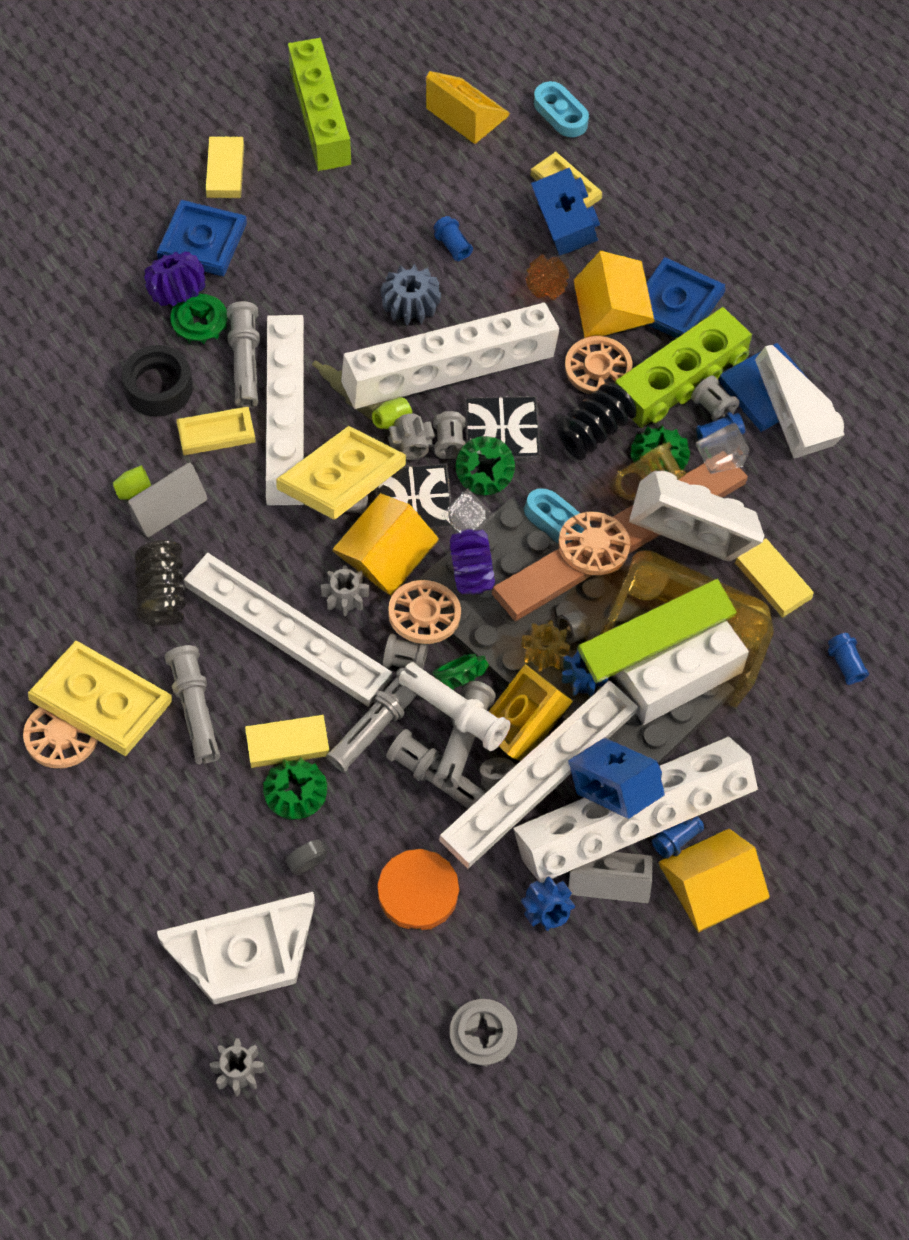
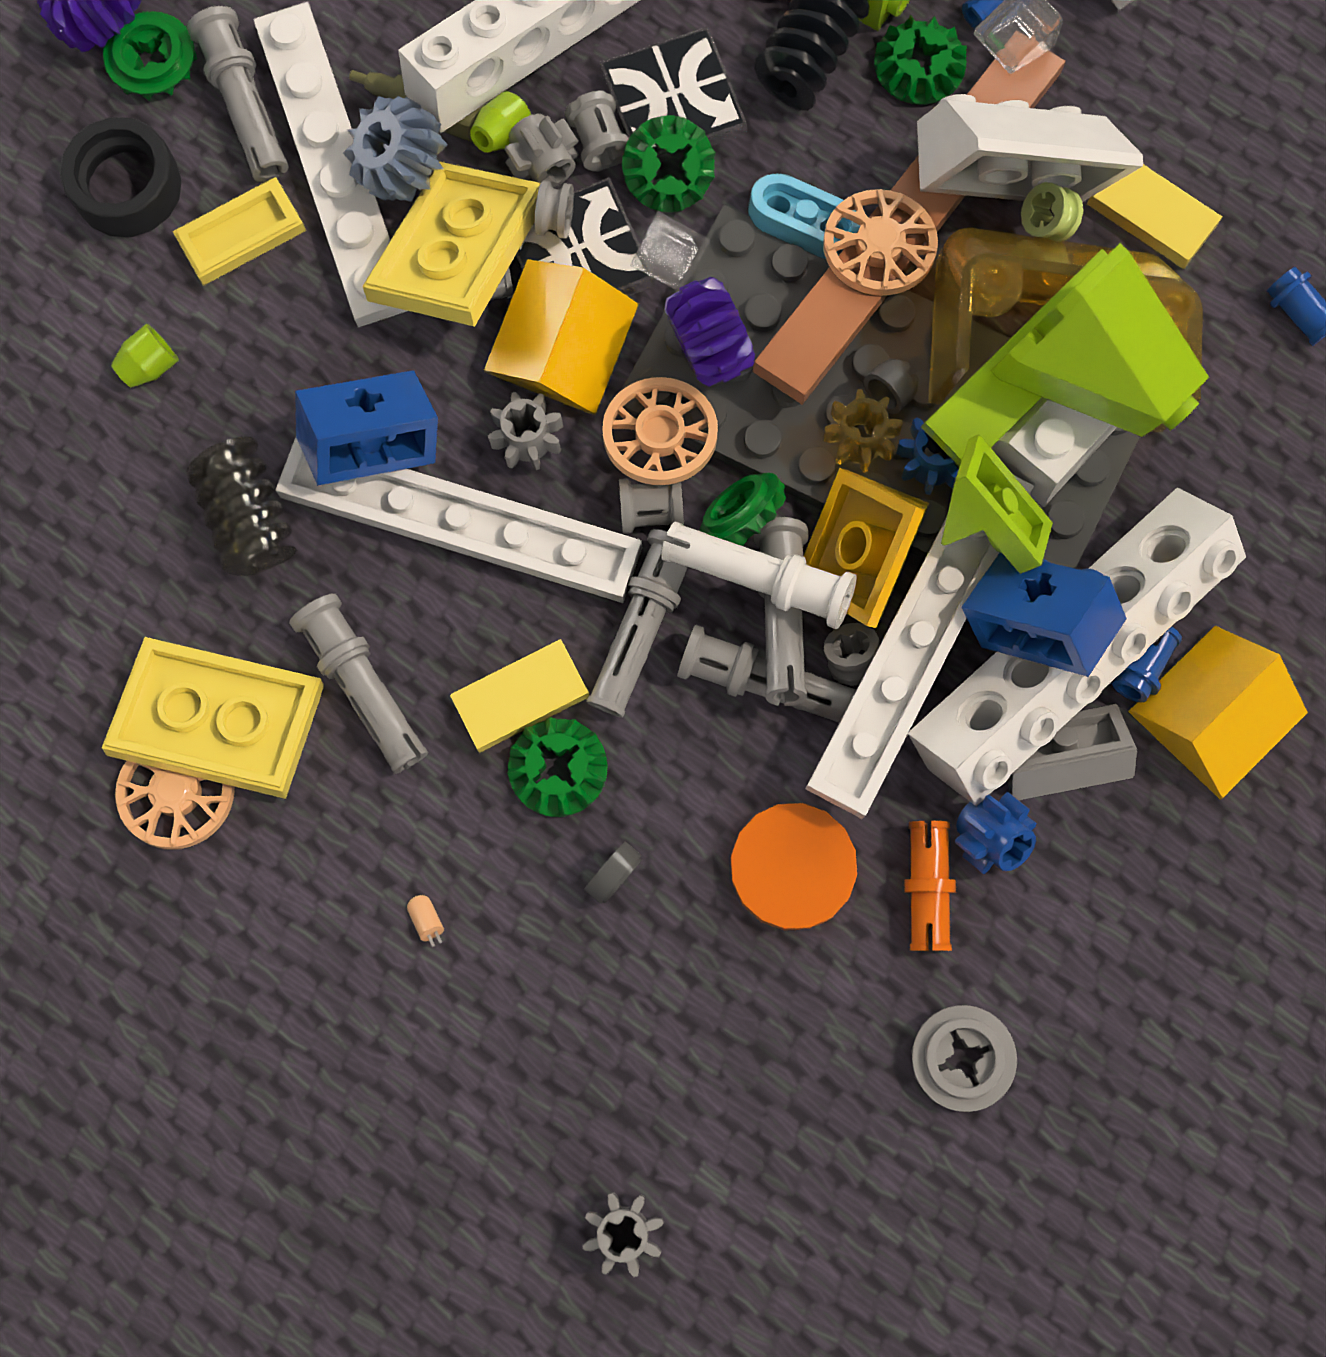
camera: 10 degrees left, 15 degrees up
(167, 500) = (205, 368): light grey slope -> none
(183, 852) = (425, 918): none -> light nougat piece
(244, 948) = (568, 1045): white wing -> none
(250, 558) = (366, 427): none -> blue brick
(323, 409) = (395, 148): none -> sand blue gear
(406, 470) = (554, 209): none -> light grey bush
(497, 924) = (930, 886): none -> orange pin
(603, 699) = (994, 501): none -> lime slope
(646, 465) = (916, 93): clear yellow piece -> none
(695, 632) = (1110, 352): none -> lime slope
(705, 556) = (1066, 207): none -> yellowish green bush

